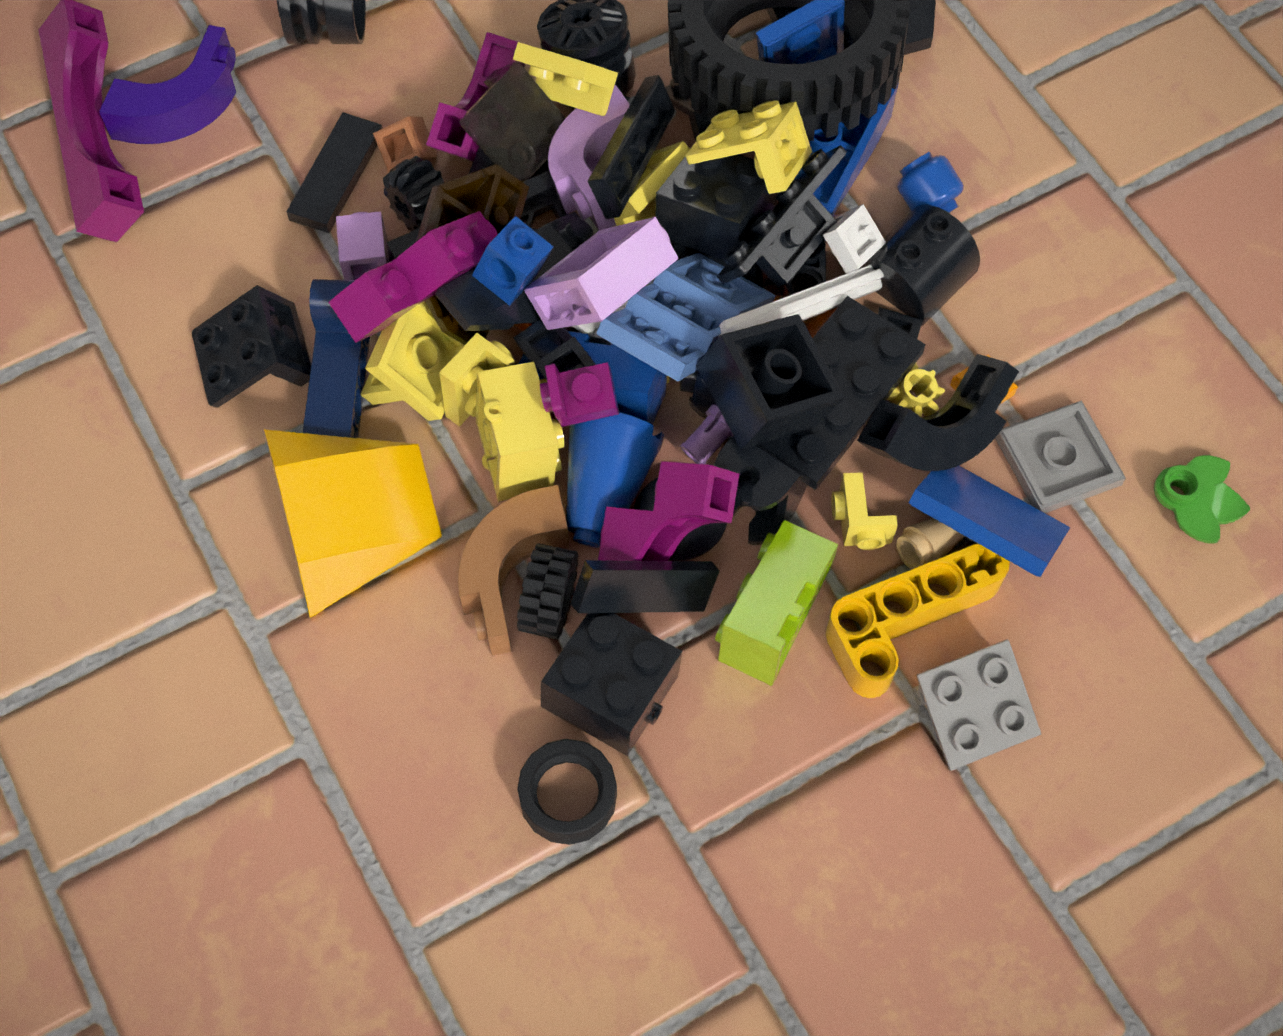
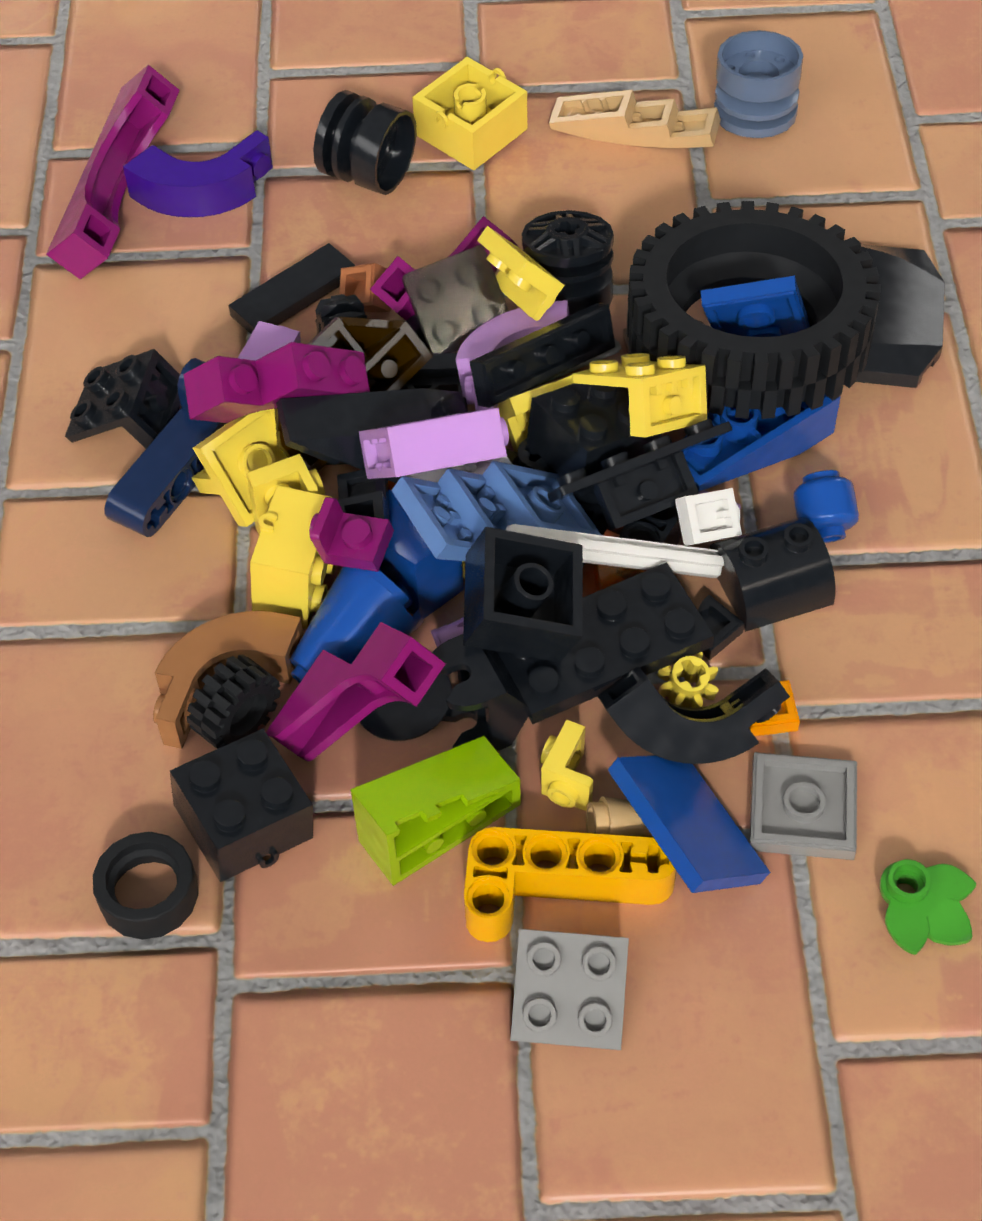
camera: 30 degrees right, 10 degrees down
(350, 509) = (113, 564): yellow wedge -> none
(512, 260) = (356, 399): blue brick -> none
(644, 586) = (315, 734): black tile -> none

